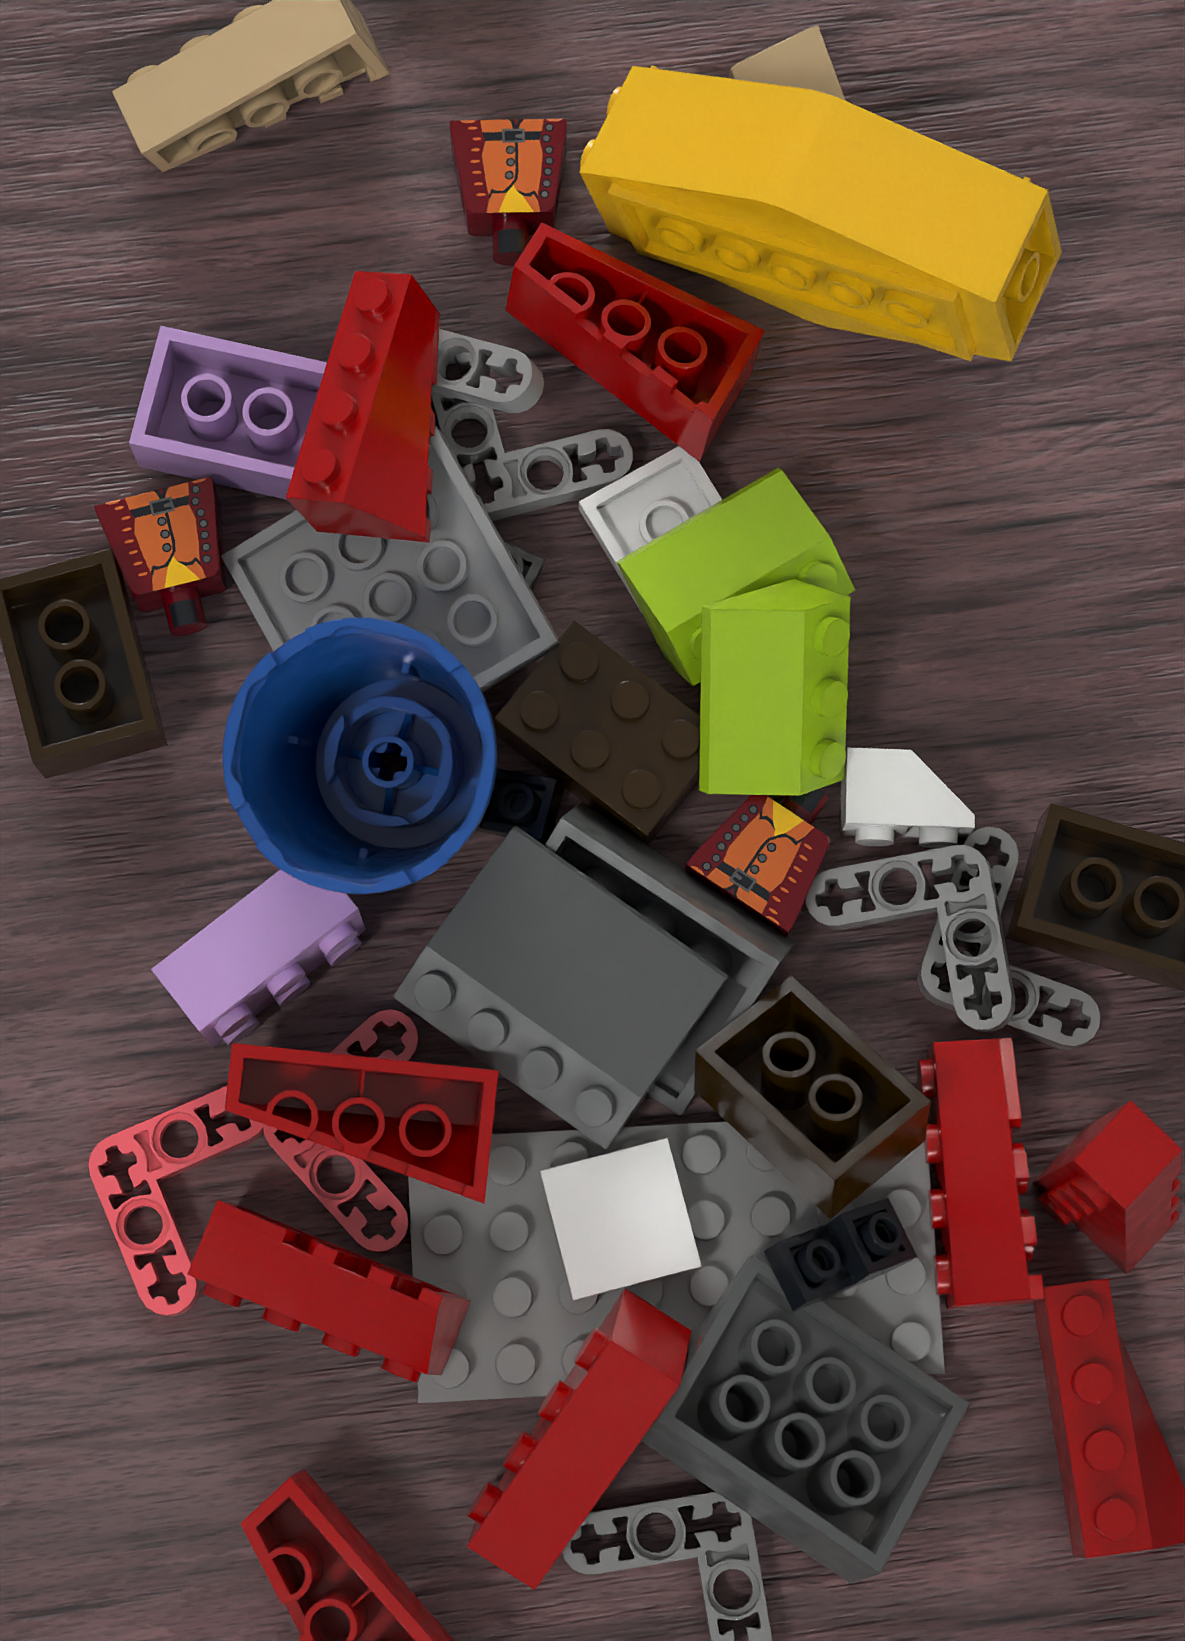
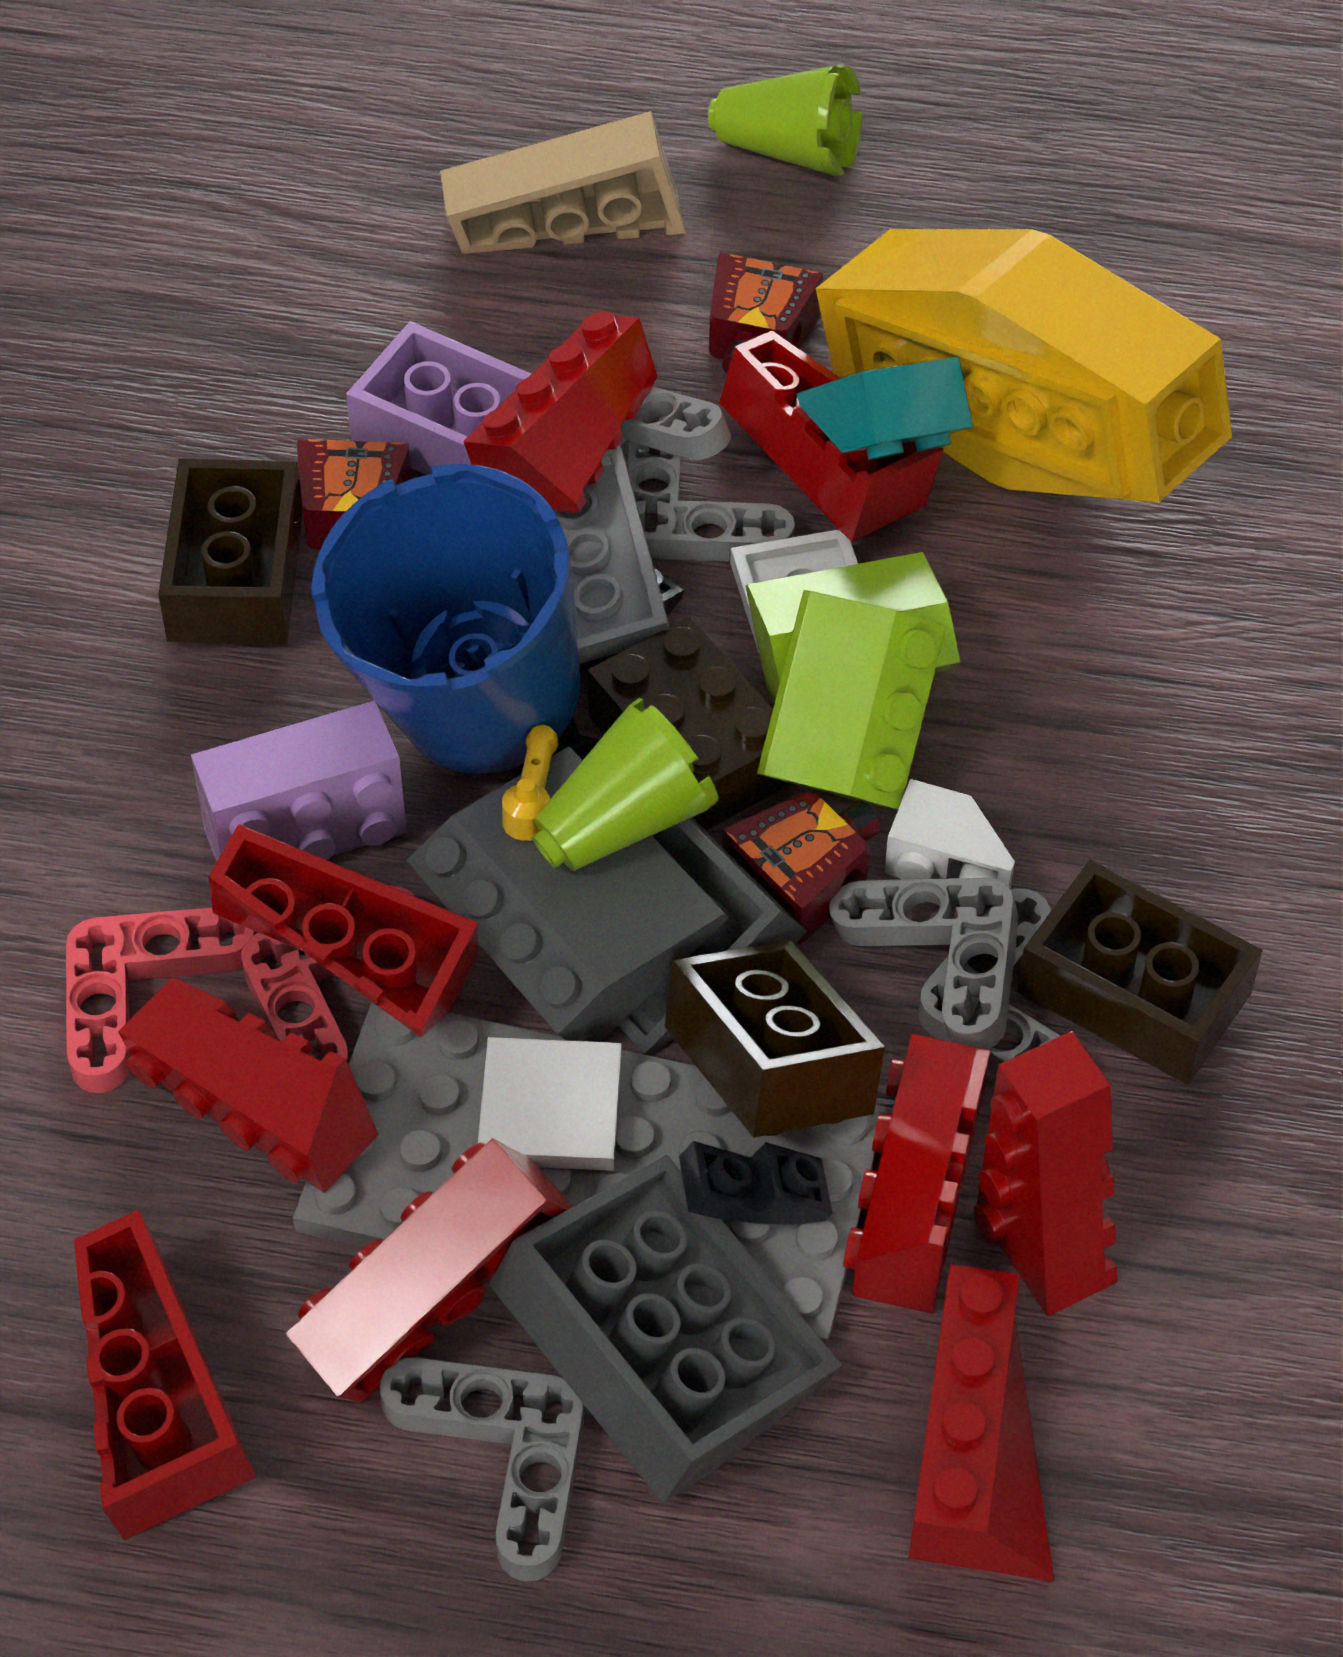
camera: 20 degrees right, 25 degrees down
(501, 924) = (527, 798): none -> yellow piece
(595, 897) = (623, 791): none -> lime cone
(704, 314) = (892, 407): none -> teal slope

